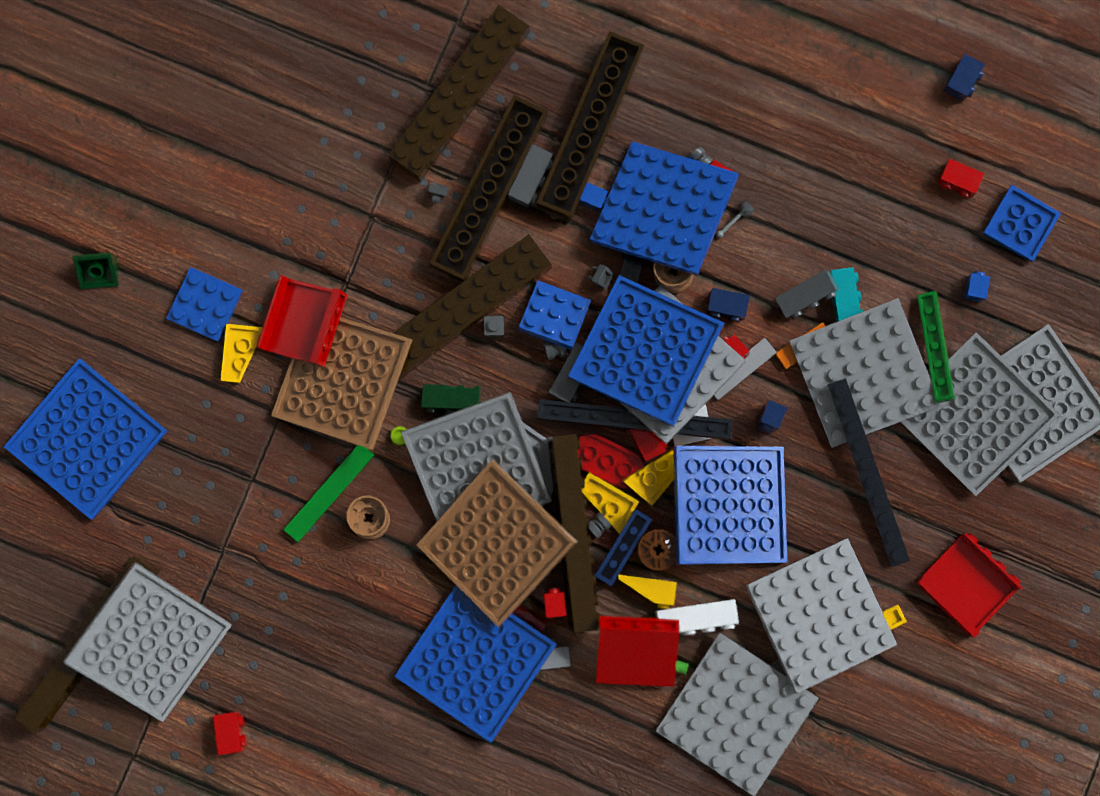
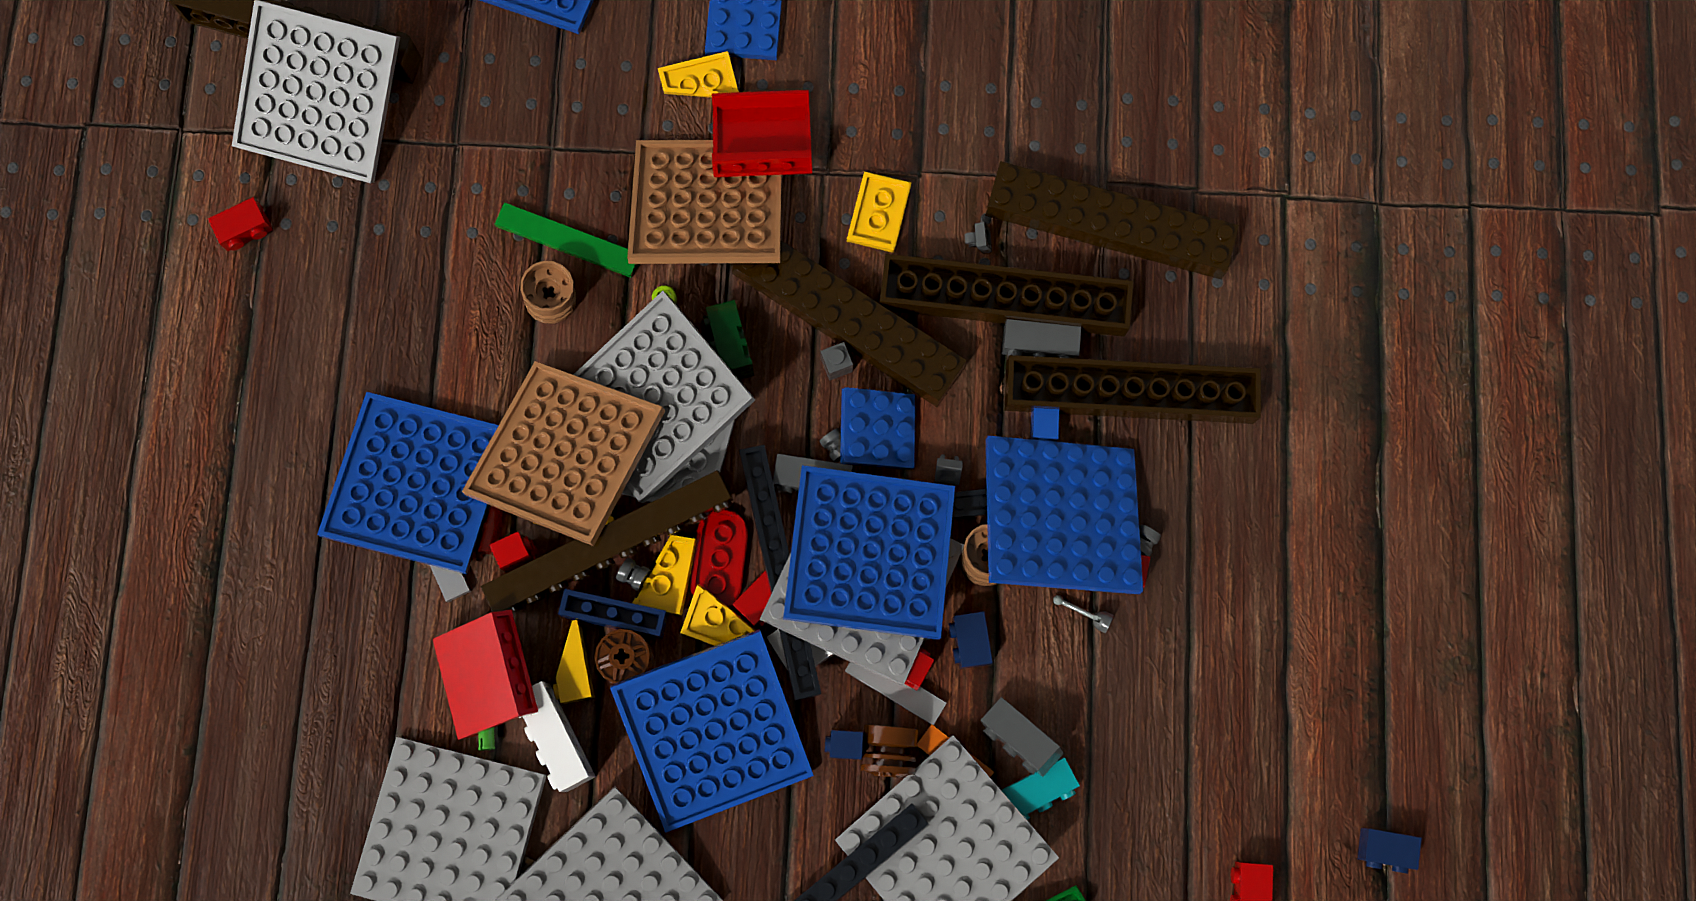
camera: 70 degrees right, 5 degrees down
(390, 257) = (879, 212): none -> yellow tile
(785, 387) = (889, 750): none -> reddish brown wheel

